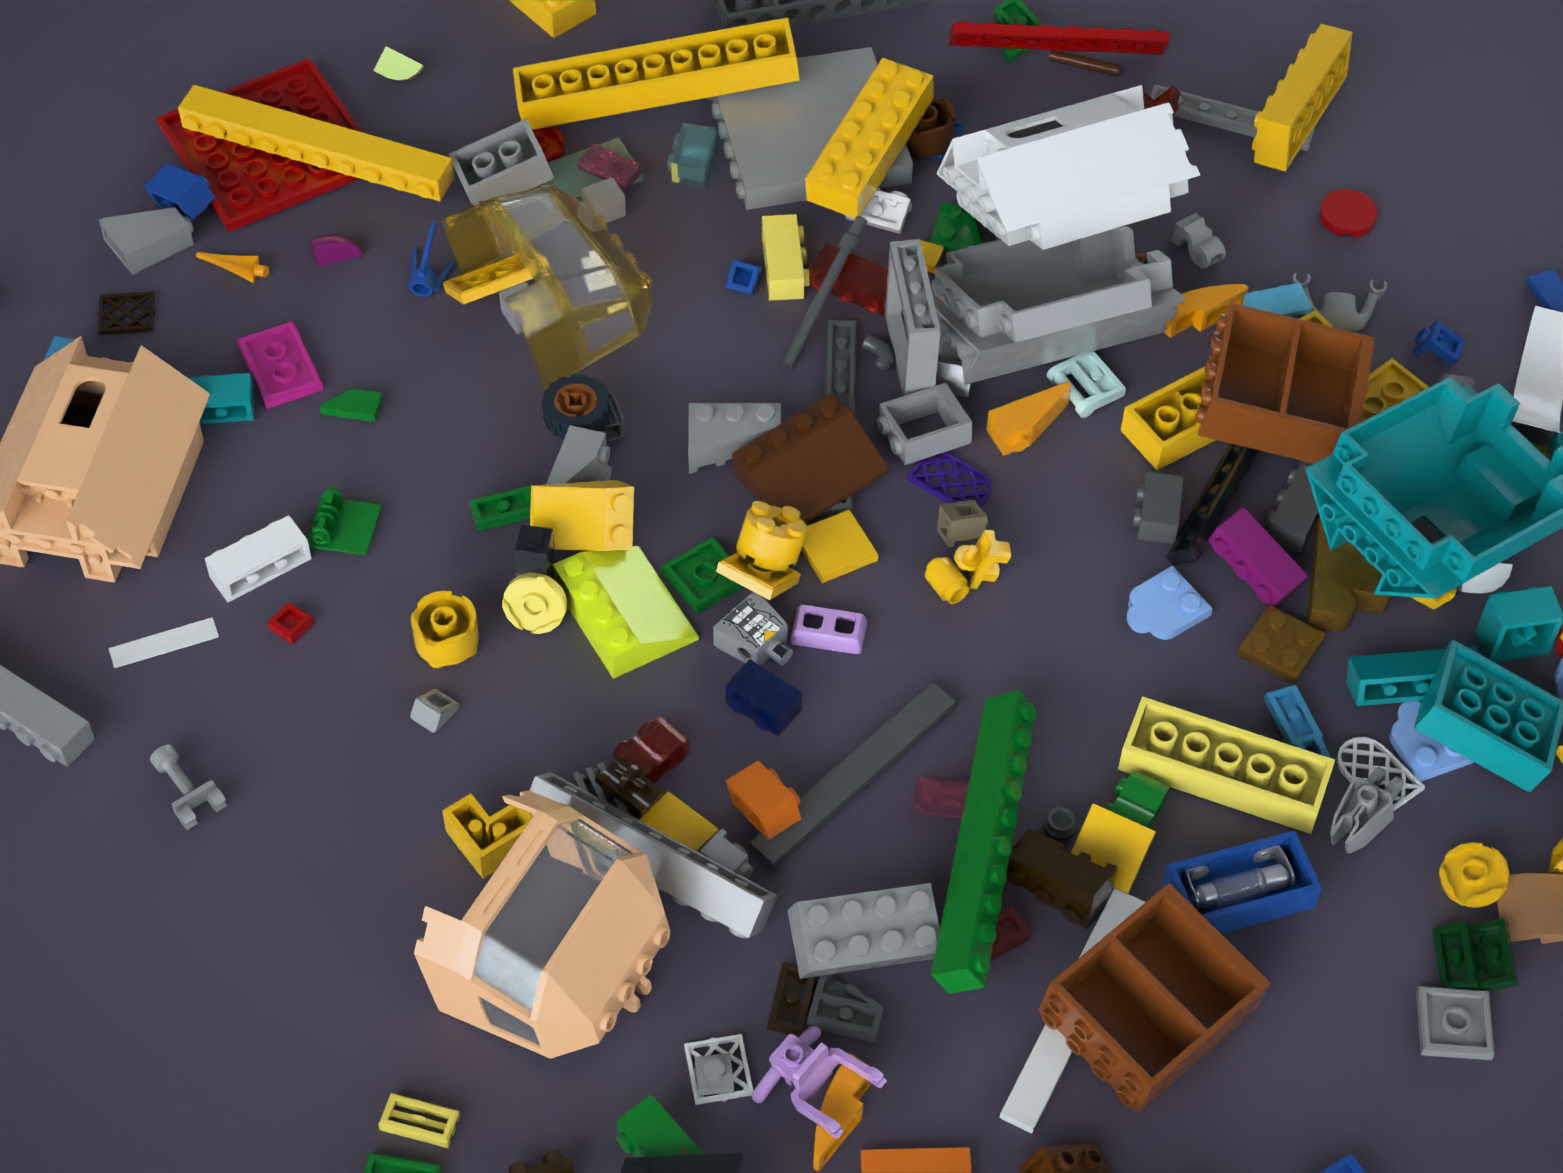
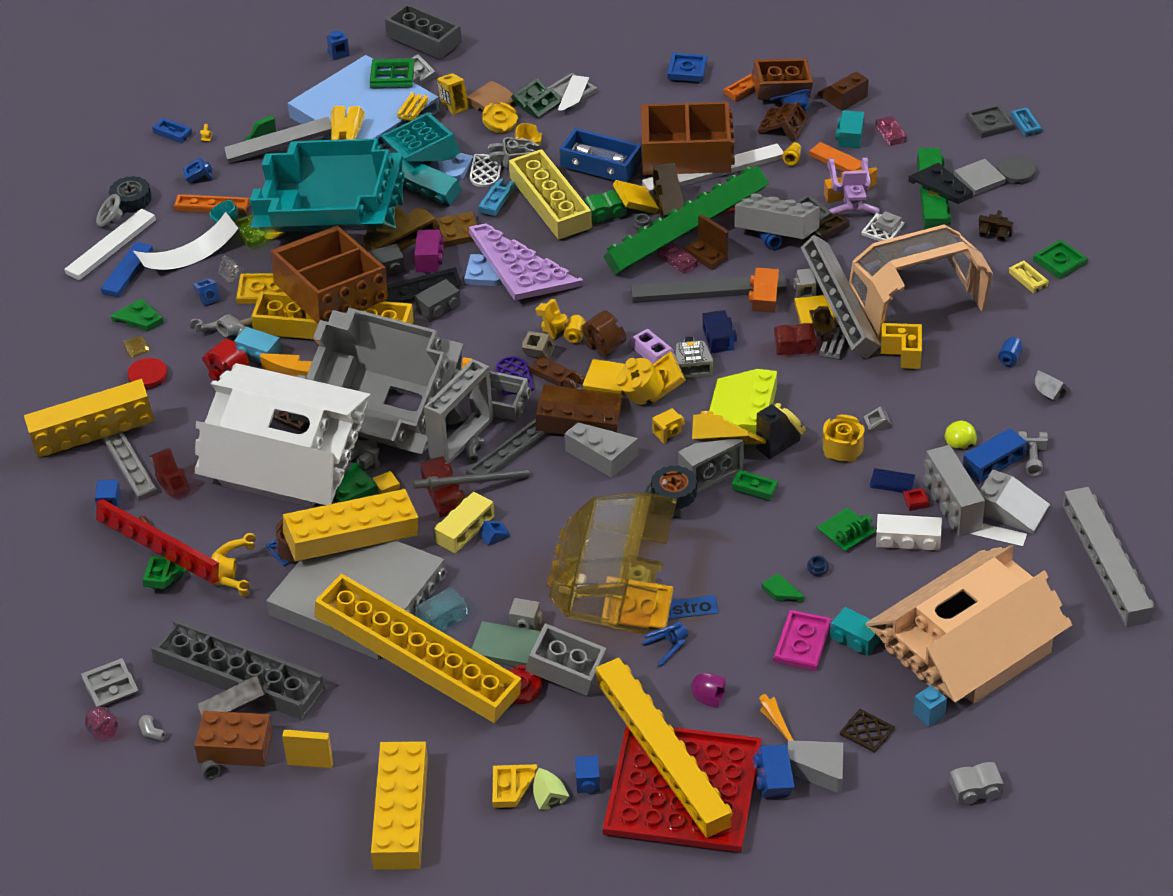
camera: 135 degrees left, 10 degrees down
(158, 682) = (1012, 502): none -> slope
(232, 739) = (994, 455): none -> blue brick
(234, 914) = (1050, 386): none -> flat silver brick
(236, 632) = (953, 490): none -> light grey brick
(303, 751) = (960, 435): none -> neon yellow hair
(335, 934) = (1010, 351): none -> blue brick
(336, 455) = (817, 565): none -> dark blue plate
(340, 628) = (892, 480): none -> clear blue tile
(374, 96) = (587, 774): none -> blue brick
(443, 50) = (511, 783): none -> yellow wing
(450, 326) = (693, 606): none -> blue sticker
(608, 164) = (500, 626): clear pink plate -> none
(685, 516) = (667, 425): none -> yellow brick
(696, 576) = (686, 400): green tile -> none
(894, 580) = (603, 333): none -> reddish brown brick
(899, 510) = (555, 373): none -> reddish brown hinge
(919, 834) = (711, 245): none -> reddish brown bracket
(964, 70) = (227, 566): none -> yellow piece
(987, 1119) = (791, 155): none -> yellow cone
(1119, 622) = (519, 267): none -> lavender wing
(1179, 60) = (109, 491): none -> blue brick
(1269, 253) = (222, 358): none -> red brick
(1386, 857) = (528, 132): none -> yellow hair
(1410, 236) = (135, 346): none -> clear yellow tile
(1440, 1009) = (573, 92): none -> white sticker
(1463, 271) = (138, 315): none -> green wing

